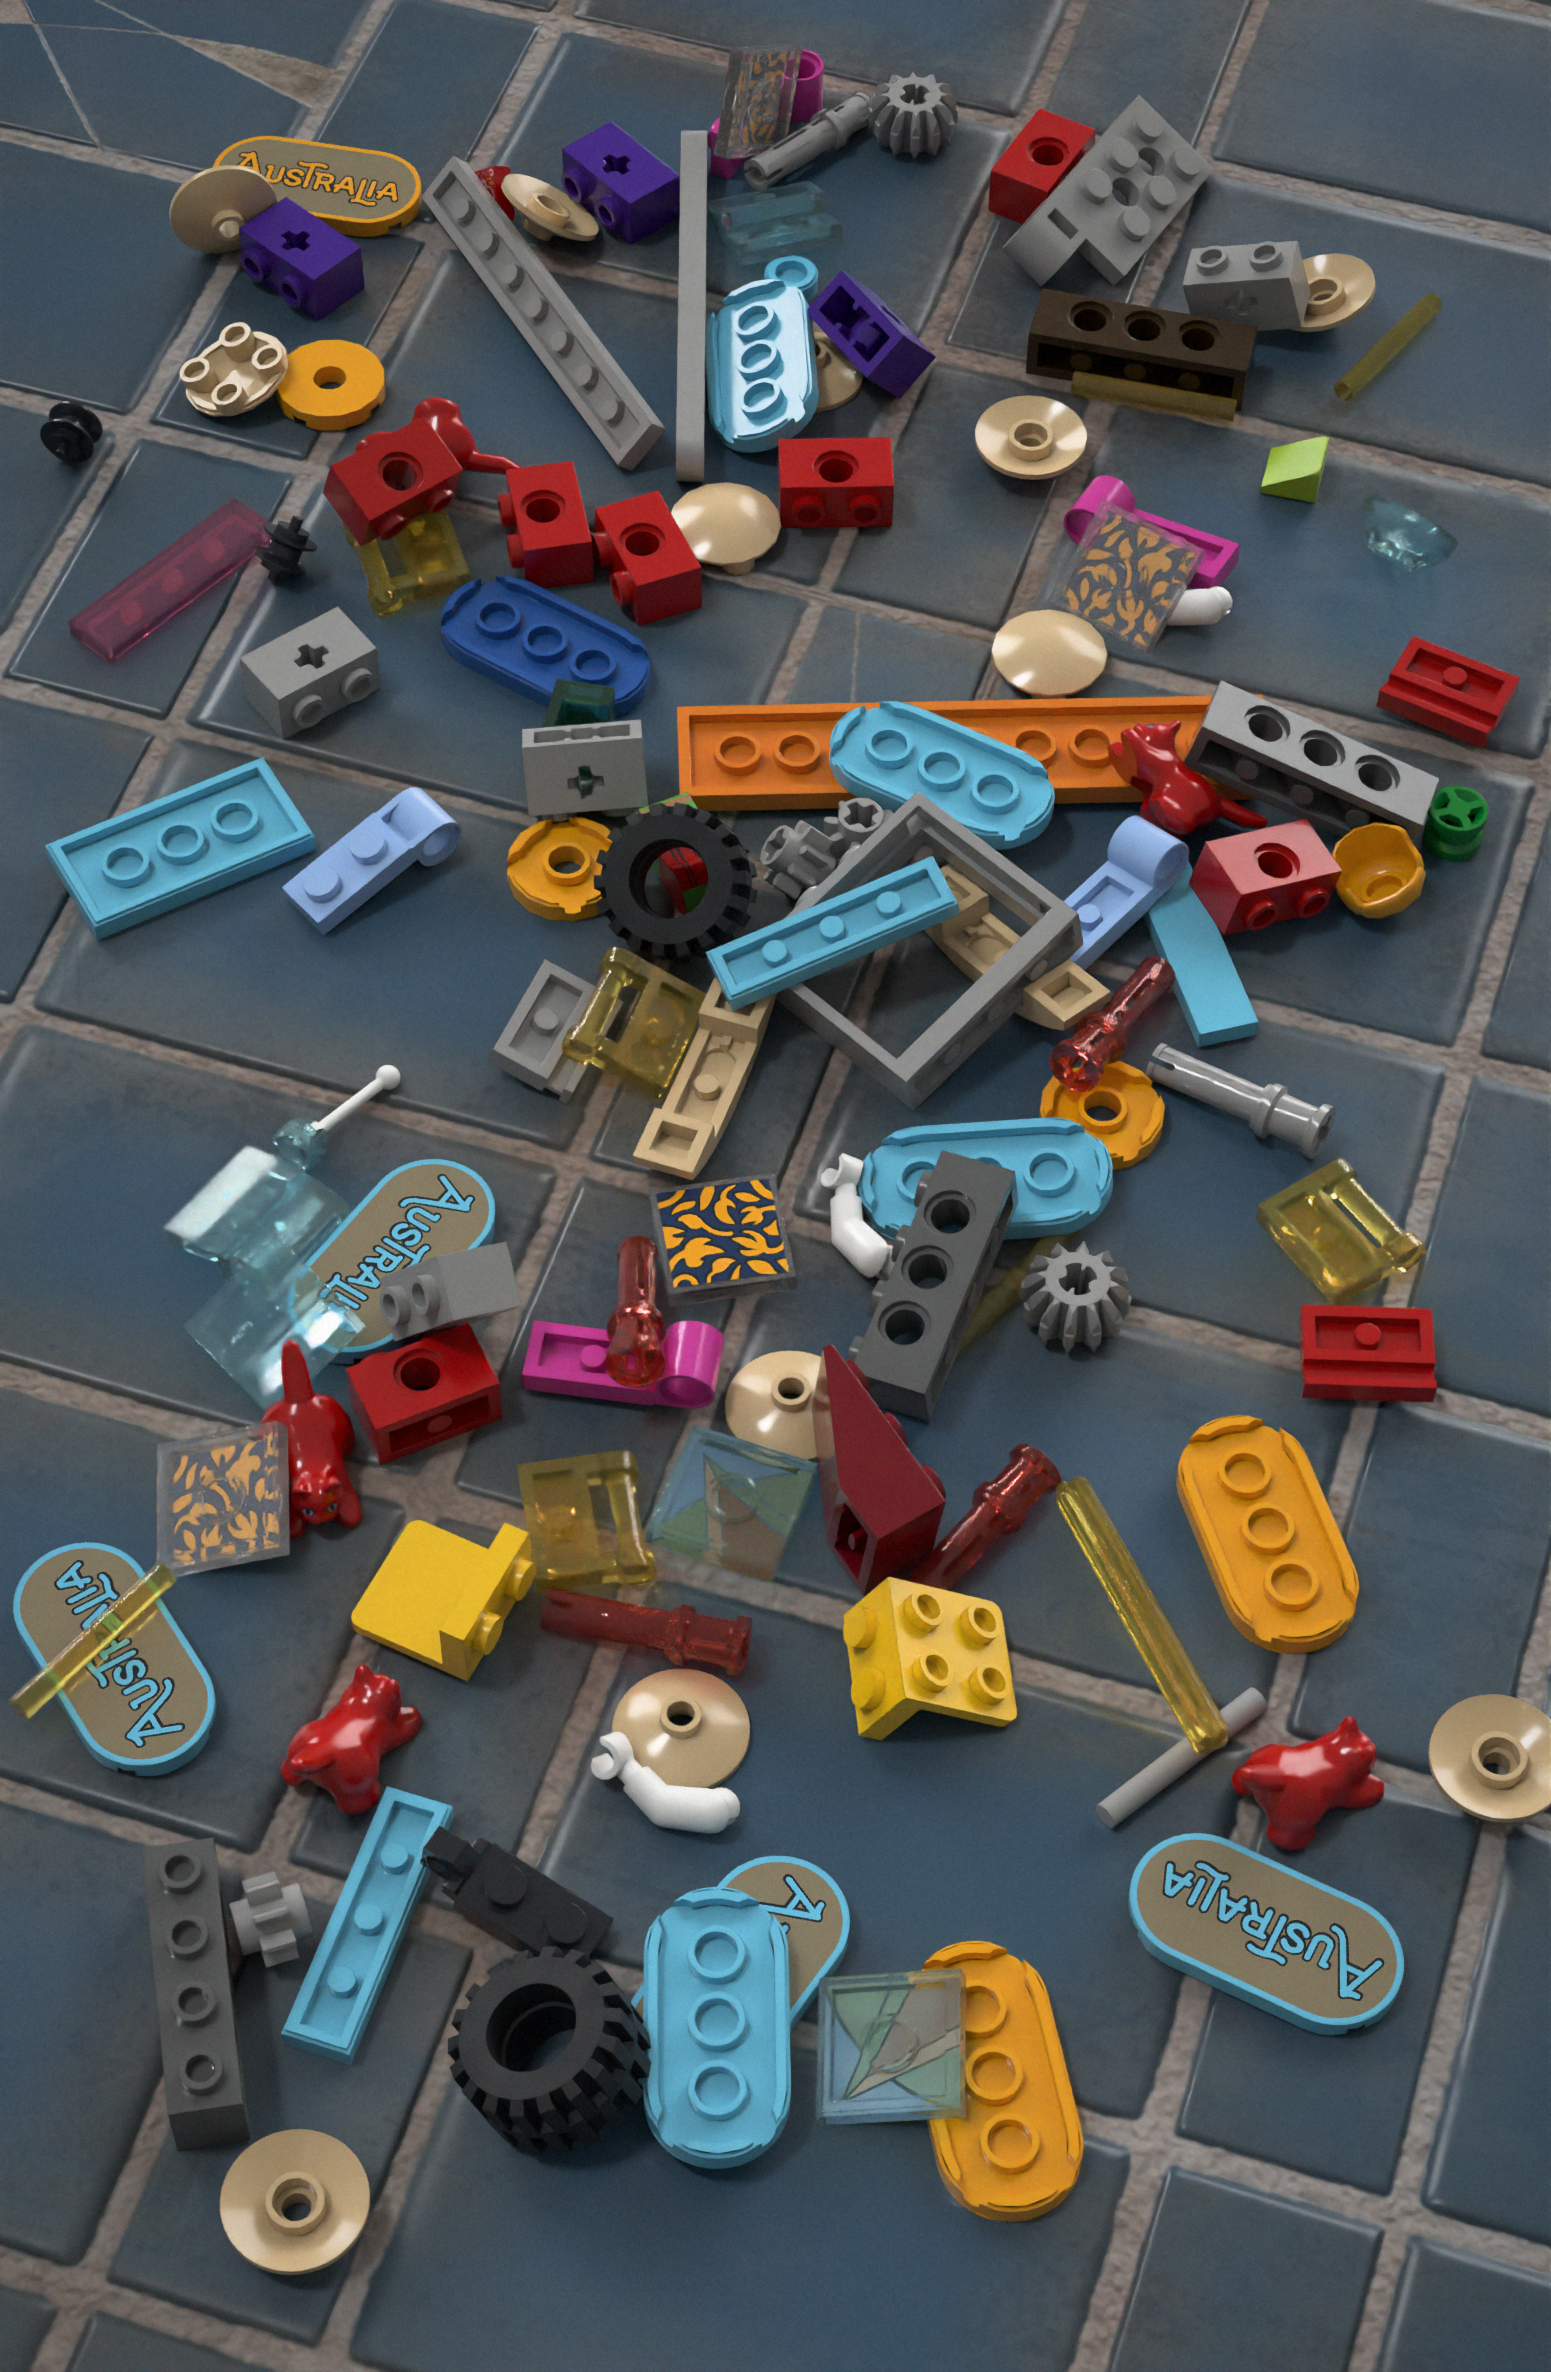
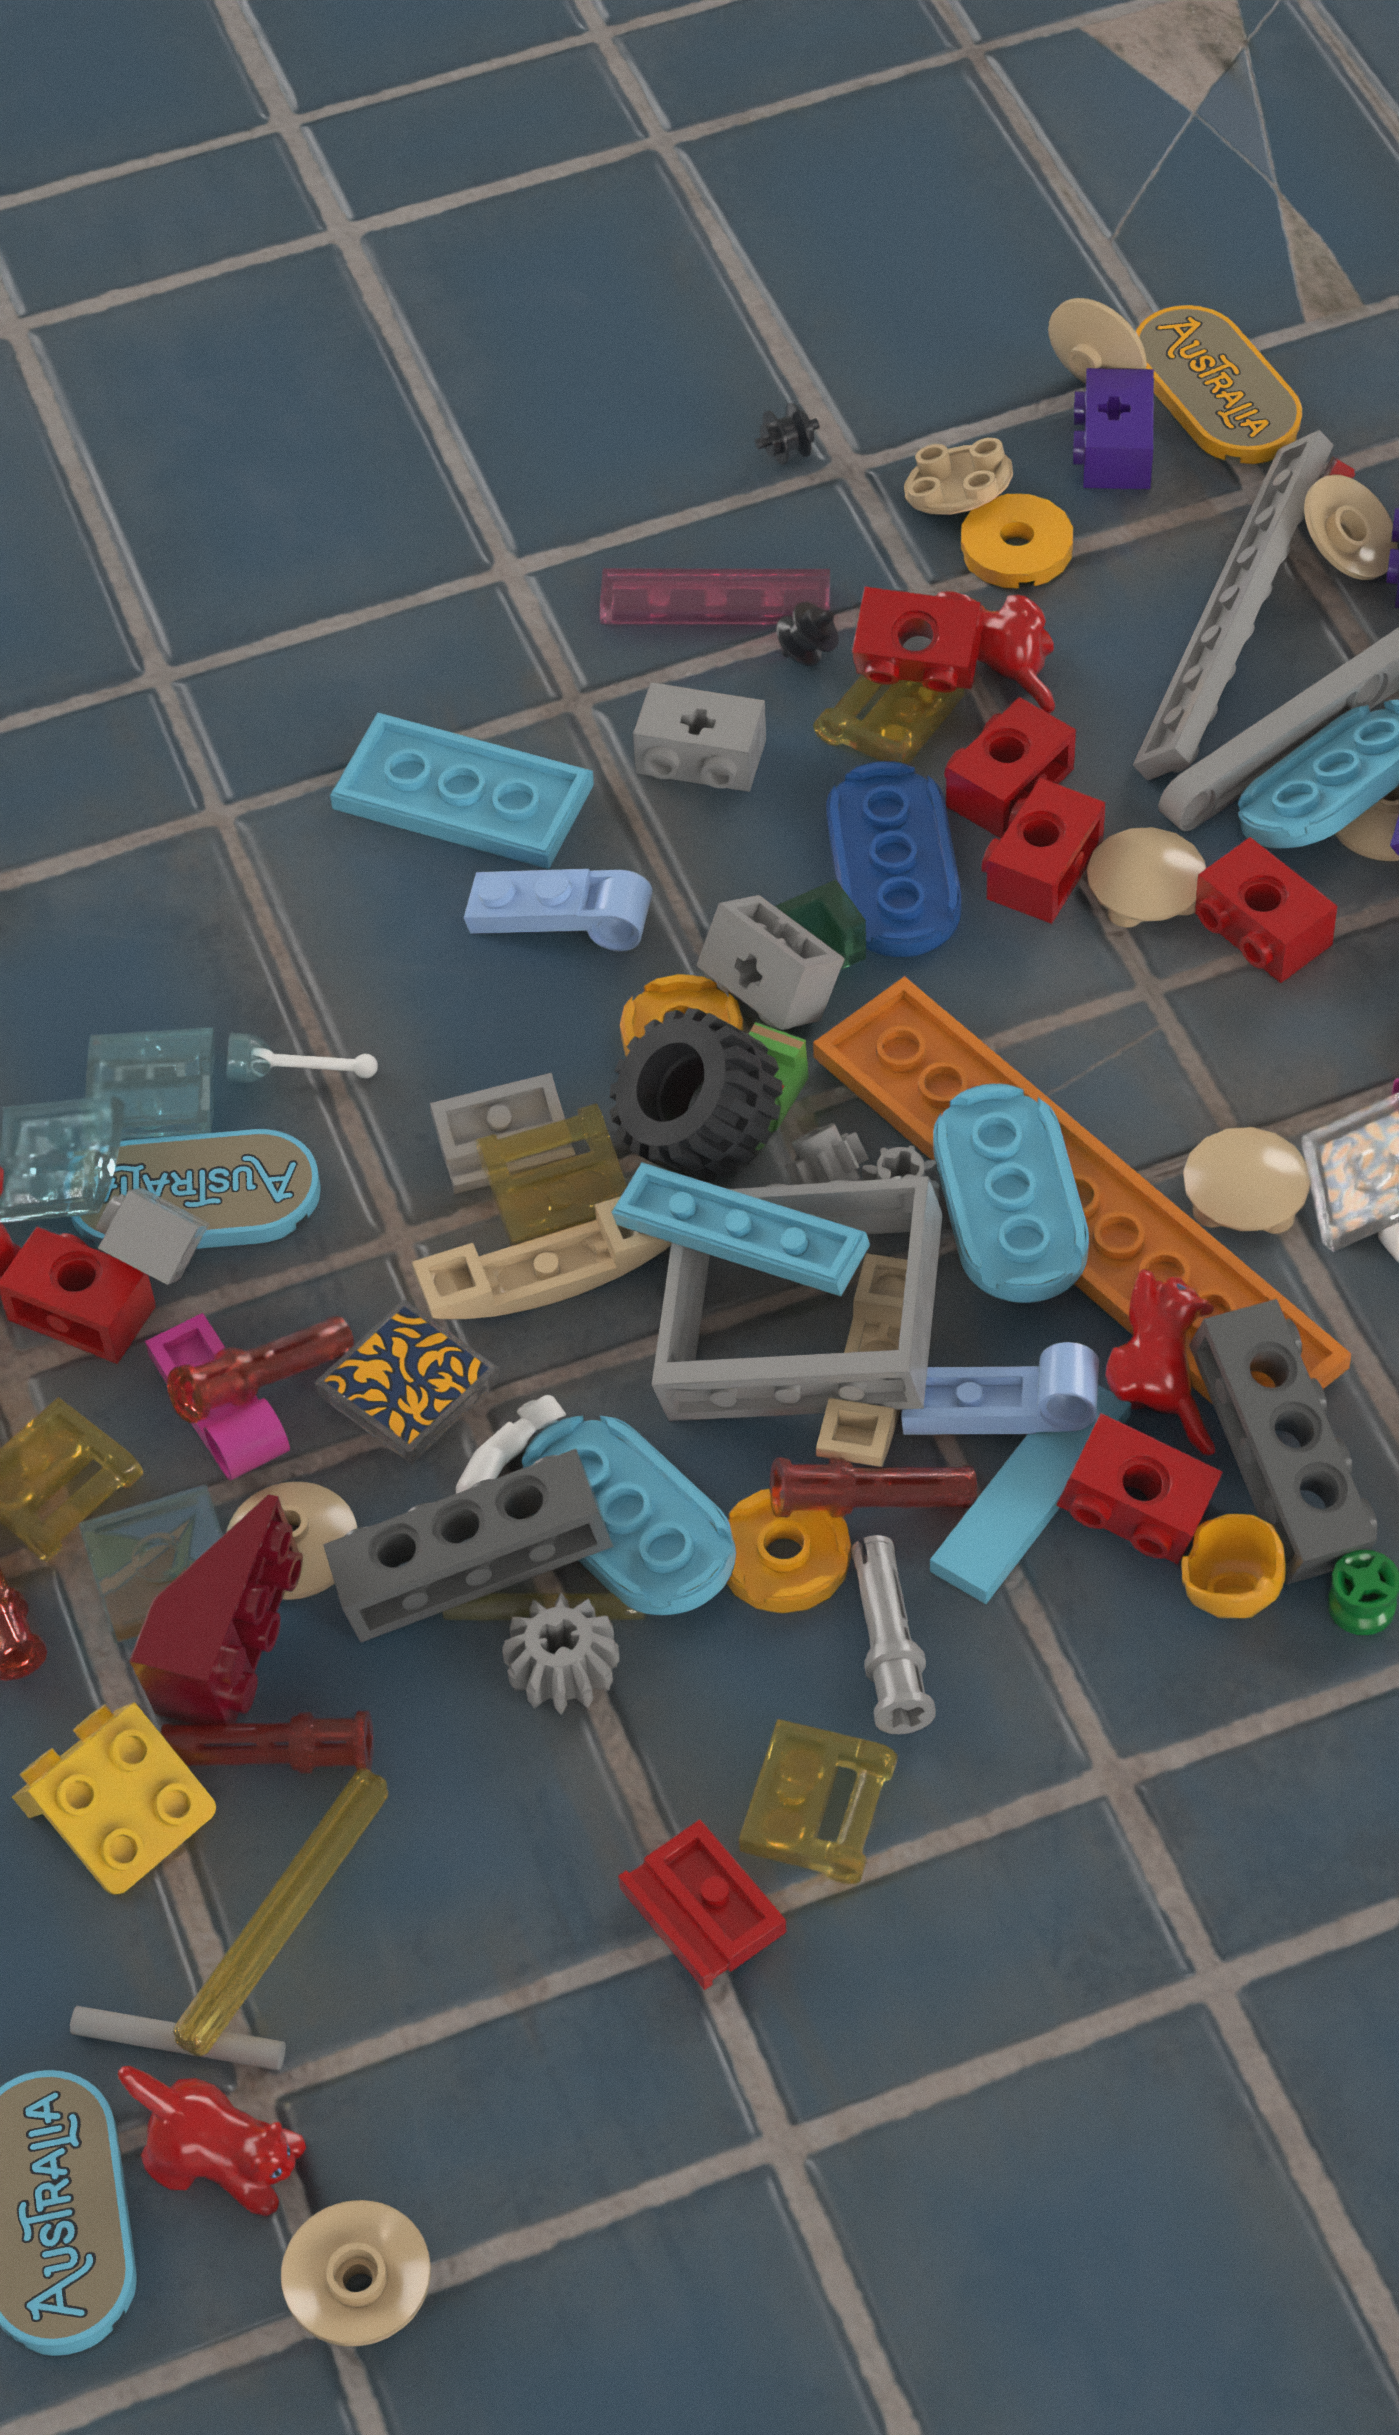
camera: 55 degrees right, 0 degrees up
(1267, 1535) = (455, 1955): light orange tile -> none

